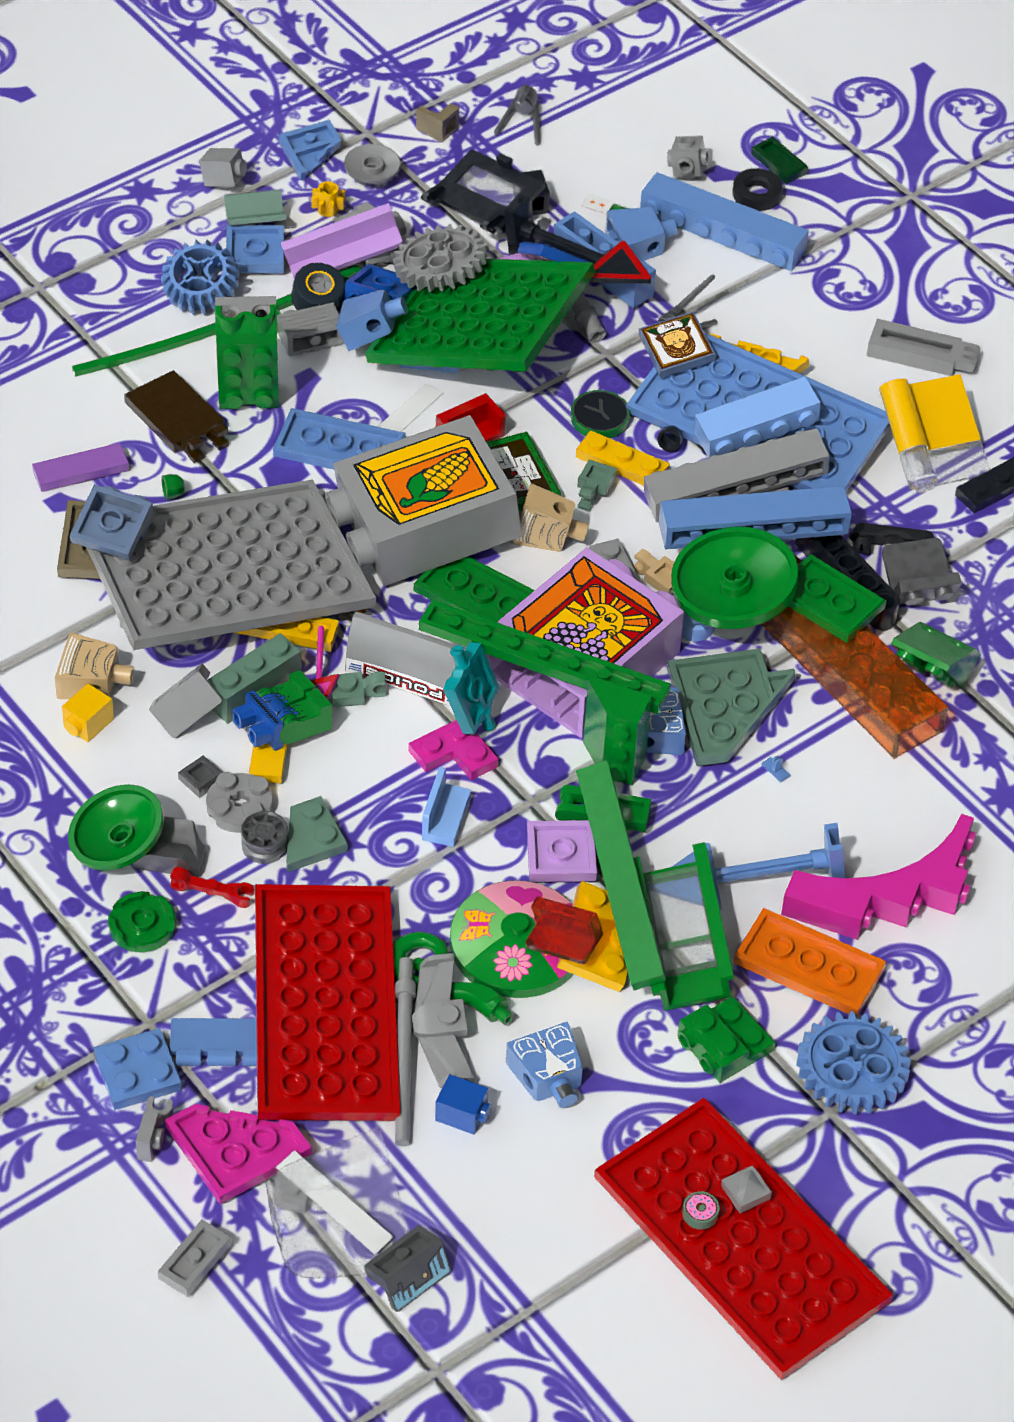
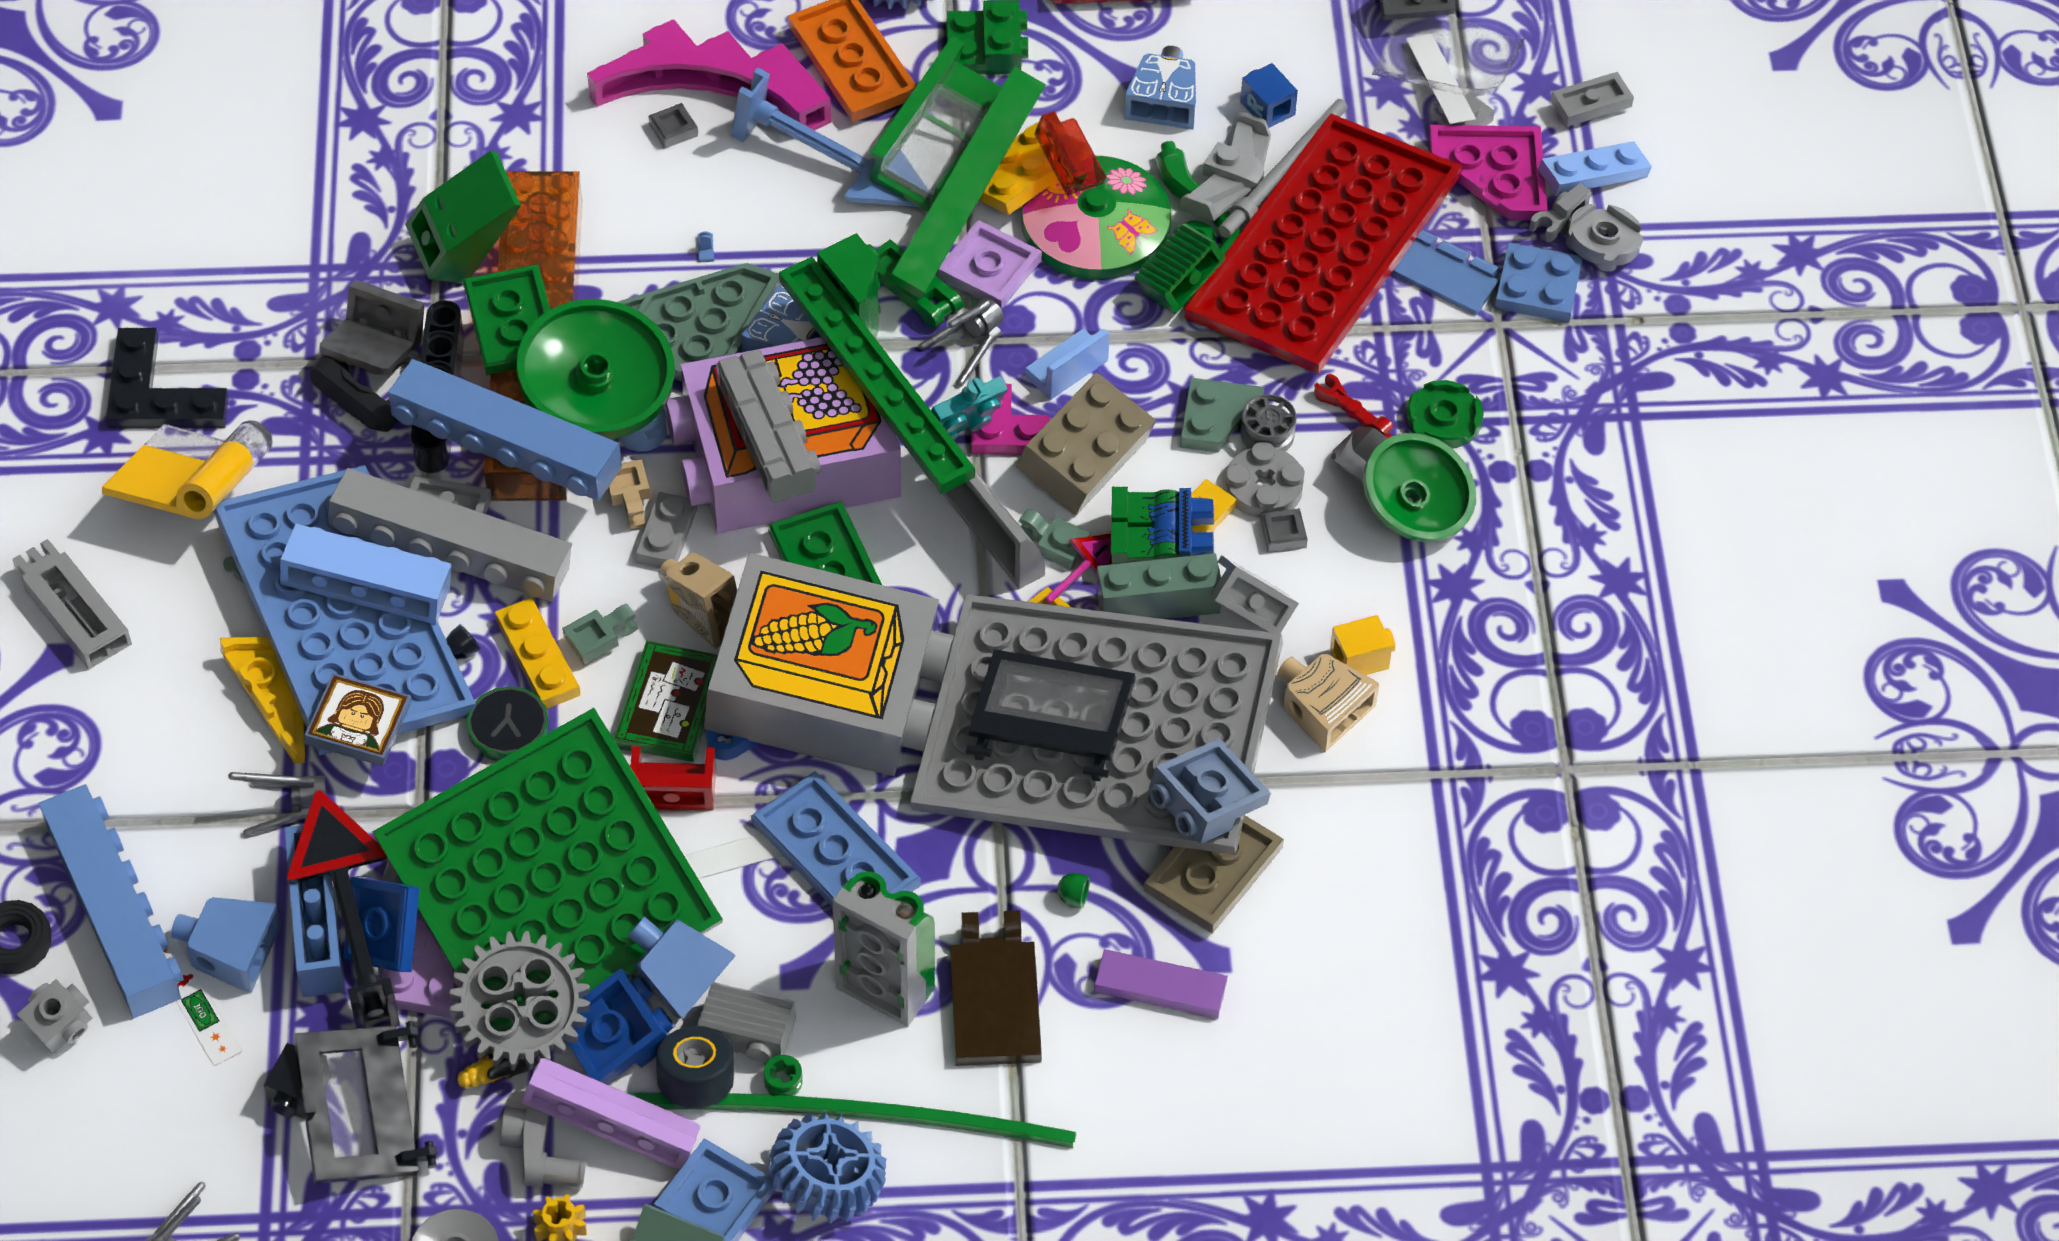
camera: 145 degrees left, 5 degrees up
(93, 1113) = (1587, 237): none -> light grey plate
(150, 1185) = (1595, 167): none -> light blue plate
(256, 538) = (1051, 707): none -> piece
(378, 741) = (1085, 443): none -> dark tan brick
(415, 904) = (1179, 268): none -> green brick
(532, 805) = (979, 321): none -> flat silver plant
(582, 583) = (767, 425): none -> light grey brick
(886, 842) = (673, 125): none -> flat silver tile

